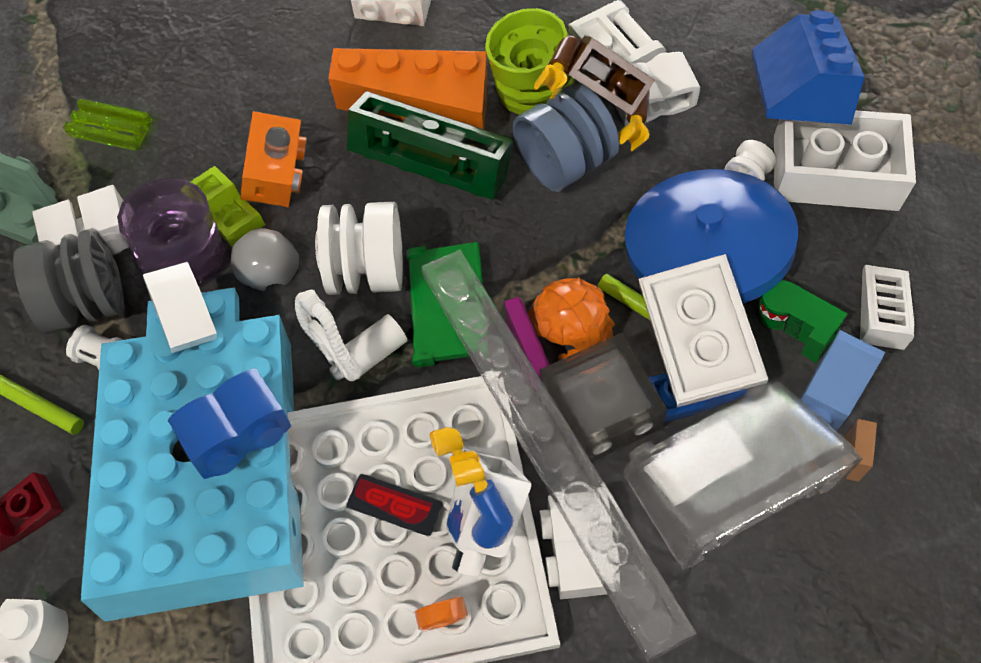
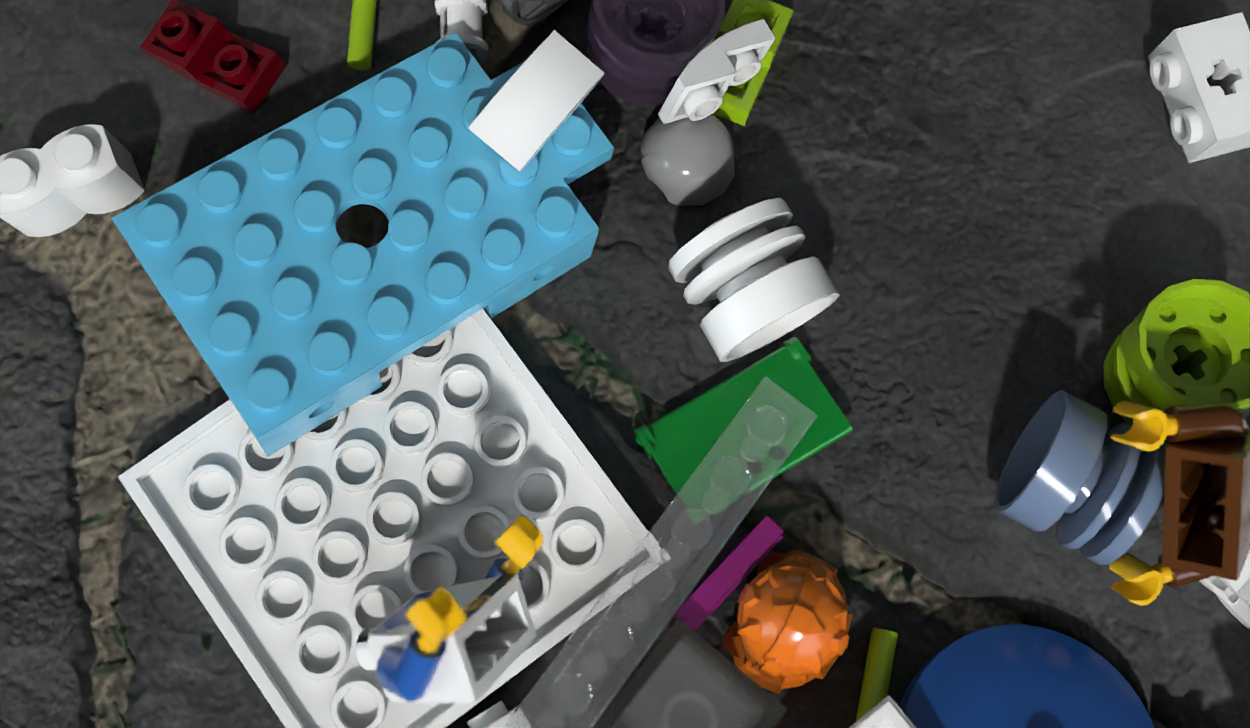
camera: 55 degrees right, 15 degrees up
(225, 209) = (722, 63): none -> white slope
(229, 424) = (392, 264): blue brick -> none
(271, 159) = (839, 79): orange piece -> none
(360, 353) = (607, 355): white piece -> none
(394, 504) = (423, 511): sticker -> none
(428, 145) = (969, 283): dark green brick -> none
(431, 80) = (1063, 213): orange wedge -> none
(441, 614) = (300, 645): orange tile -> none

